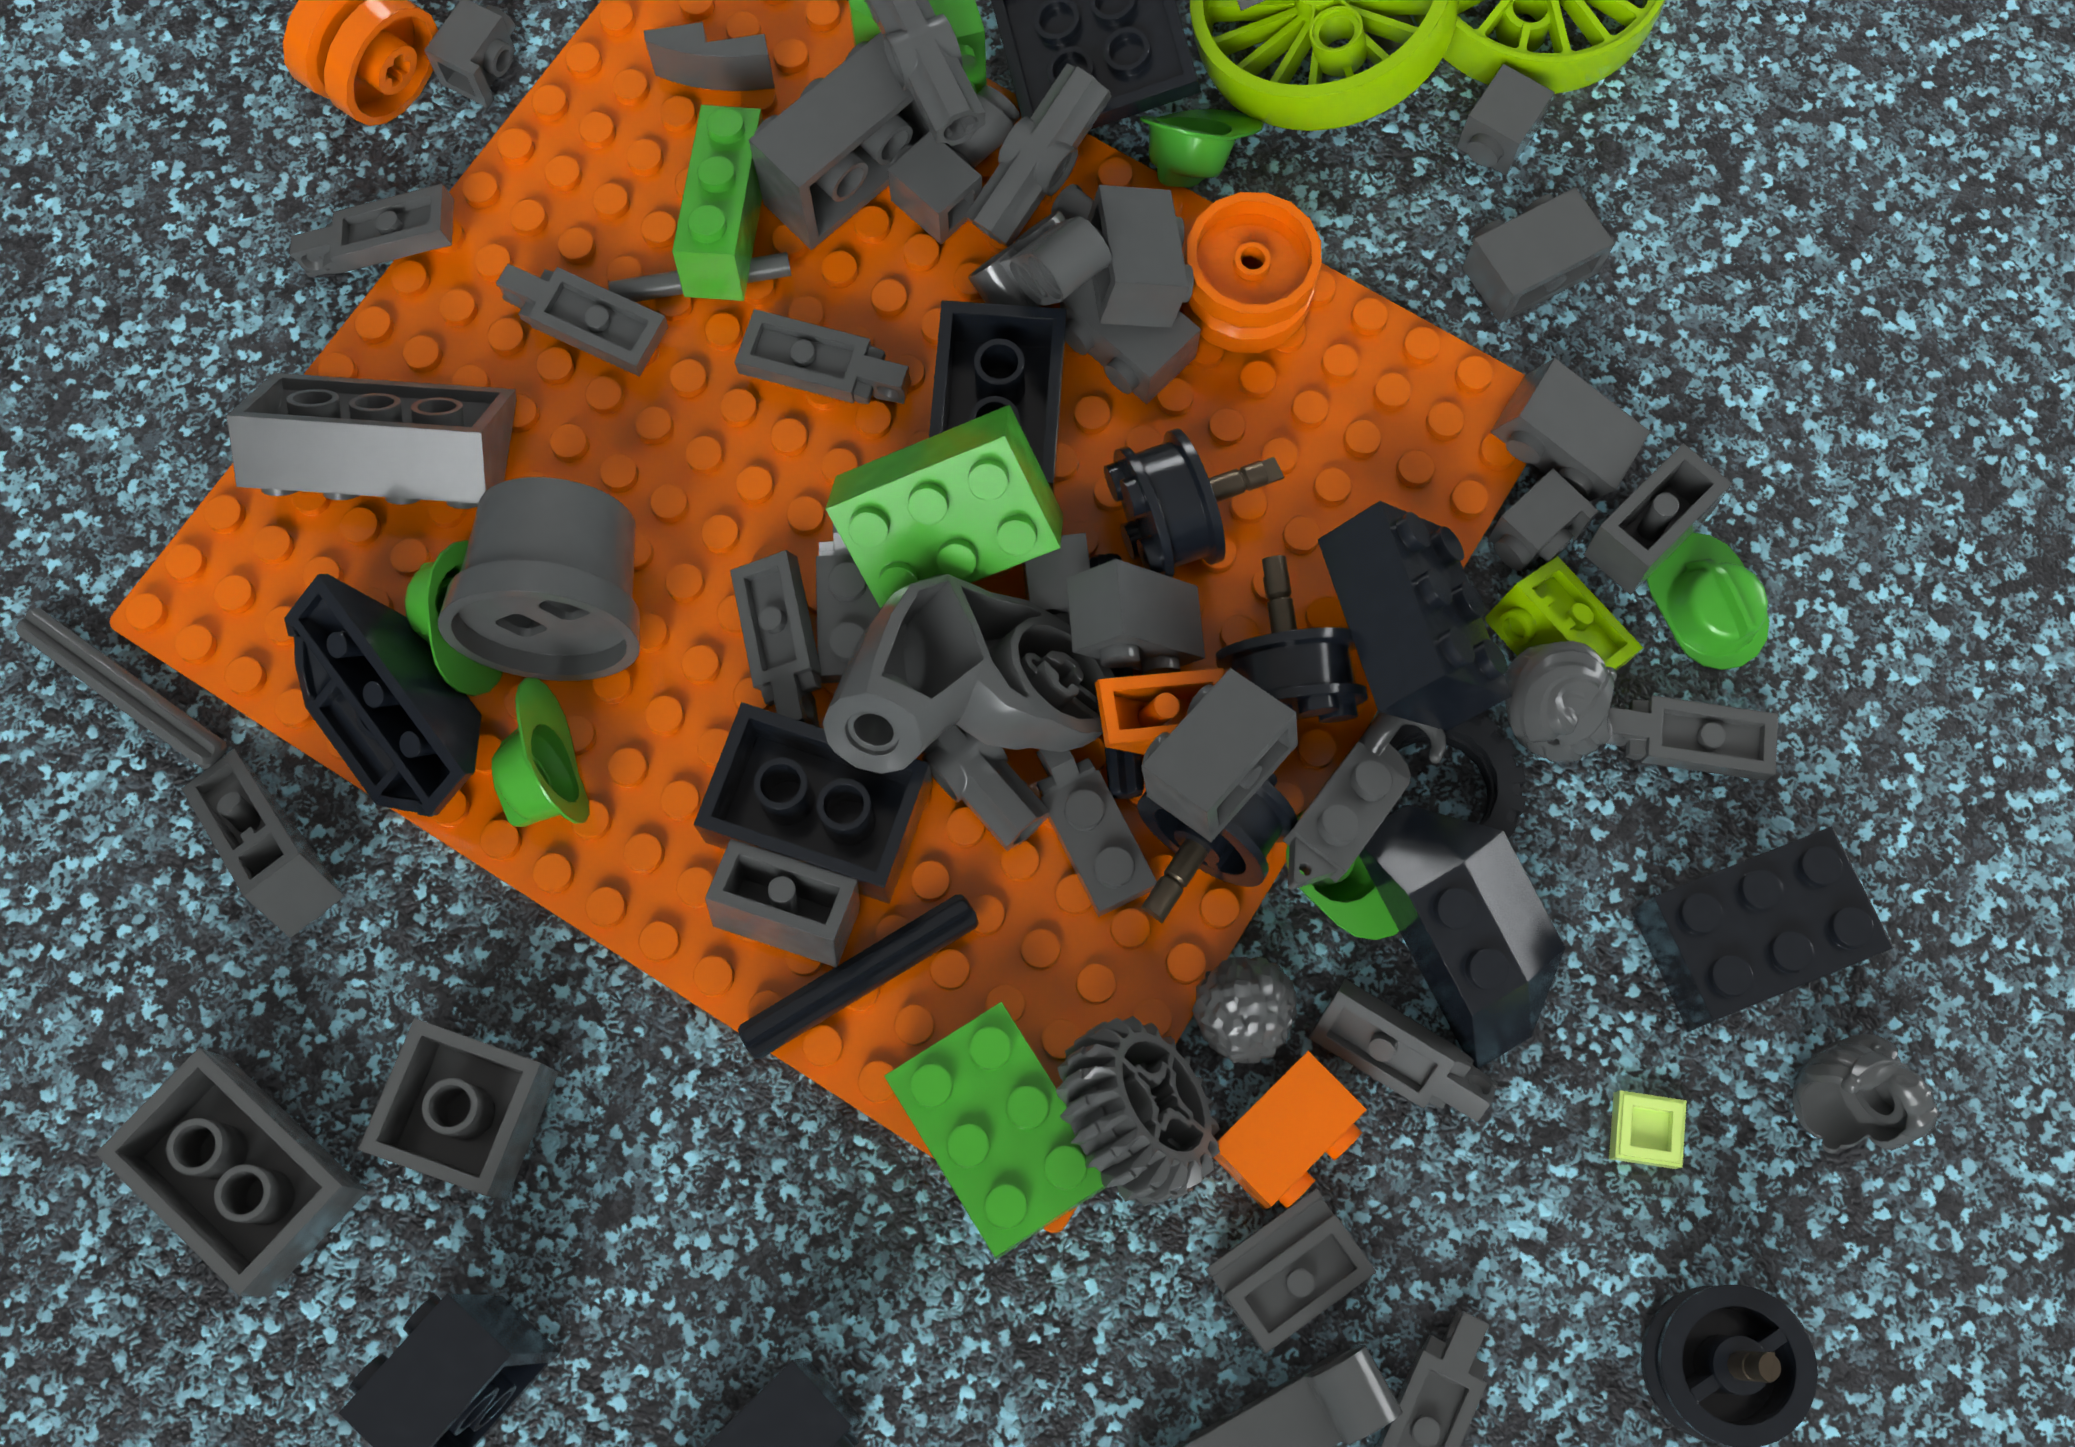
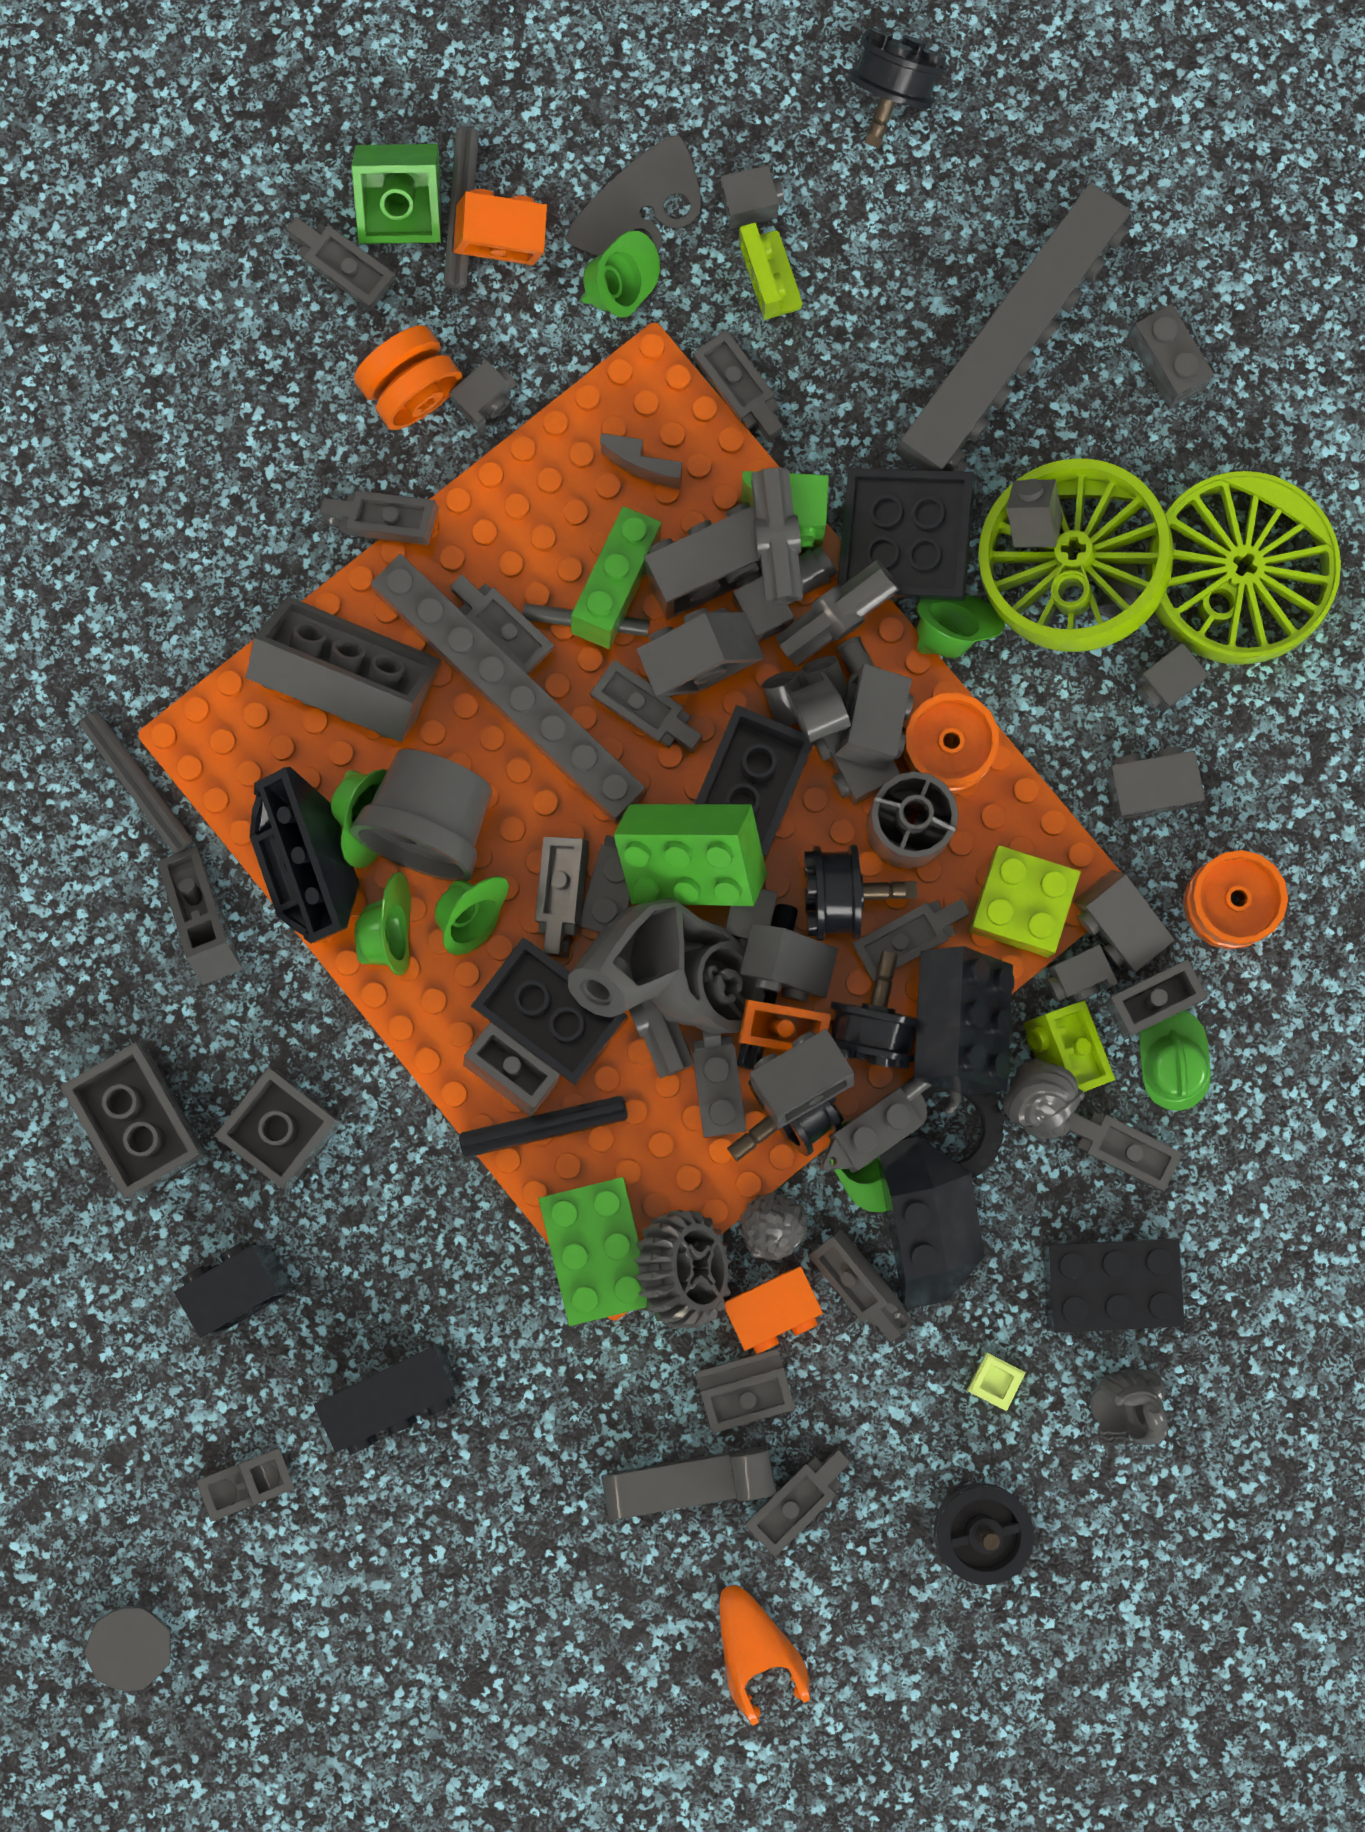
camera: 20 degrees right, 10 degrees up
(616, 389) = (508, 688): none -> dark grey brick
(656, 699) = (470, 913): none -> bright green piece
(867, 250) = (699, 652): none -> dark grey brick
(1238, 376) = (903, 842): none -> dark grey cylinder
(1288, 532) = (910, 934): none -> dark grey hinge
(1430, 442) = (1024, 901): none -> lime brick
(1707, 358) = (1257, 912): none -> orange wheel

